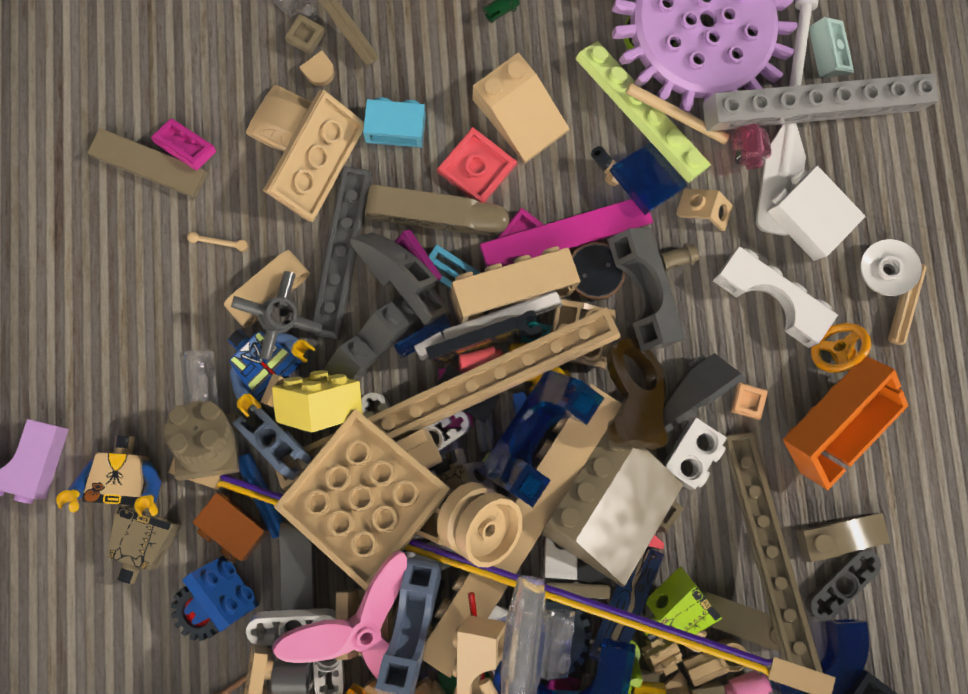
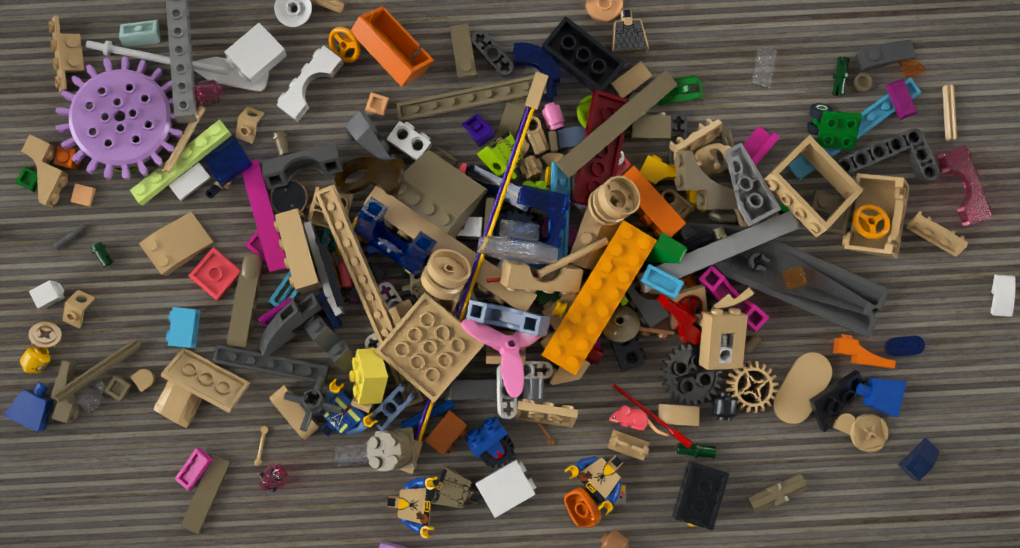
camera: 80 degrees left, 5 degrees up
(139, 627) = (506, 487): none -> white brick
(167, 260) = (273, 477): none -> clear pink head
(614, 125) = (190, 181): none -> white tile
(718, 566) = (478, 130): none -> dark purple slope

